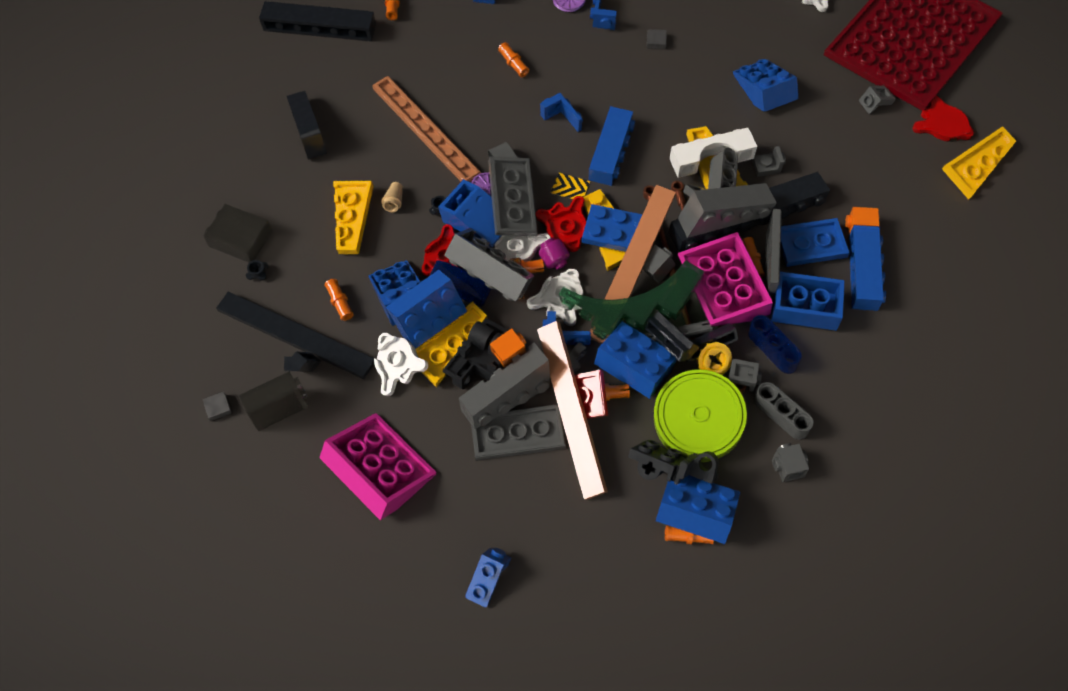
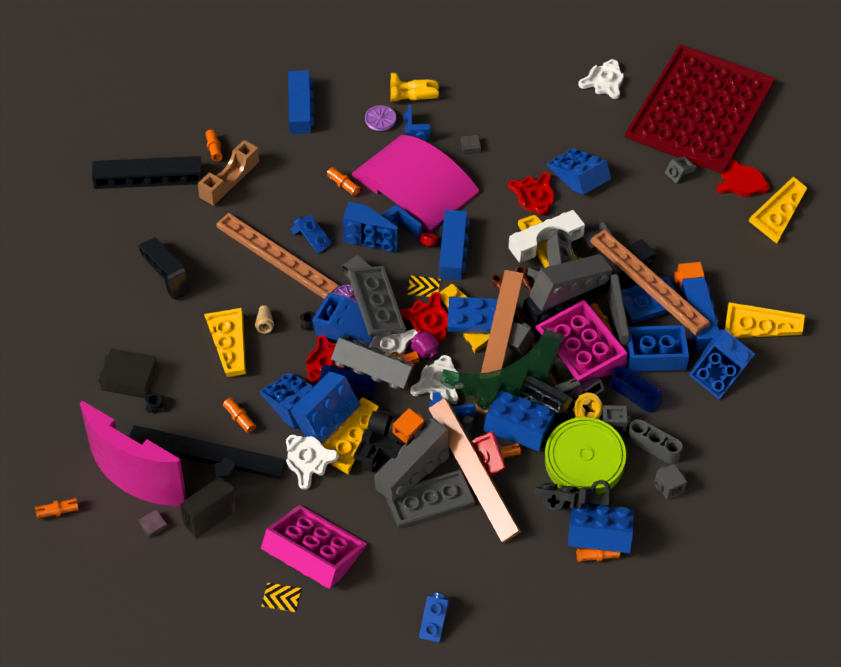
camera: 15 degrees left, 10 degrees down
(123, 371) = (56, 508): none -> orange pin
(205, 340) = (137, 469): none -> dark pink slope
(329, 517) = (281, 597): none -> sticker
(415, 22) = (242, 161): none -> medium nougat arch
(466, 110) = (311, 232): none -> blue bracket
(524, 114) = (368, 228): none -> blue slope
(587, 136) = (428, 239): none -> red tile
(592, 70) = (418, 180): none -> dark pink slope
(711, 103) = (534, 194): none -> red tile
(817, 224) = (650, 282): none -> nougat tile
(878, 331) = (721, 363): none -> blue slope
(931, 288) = (752, 321): none -> yellow wing

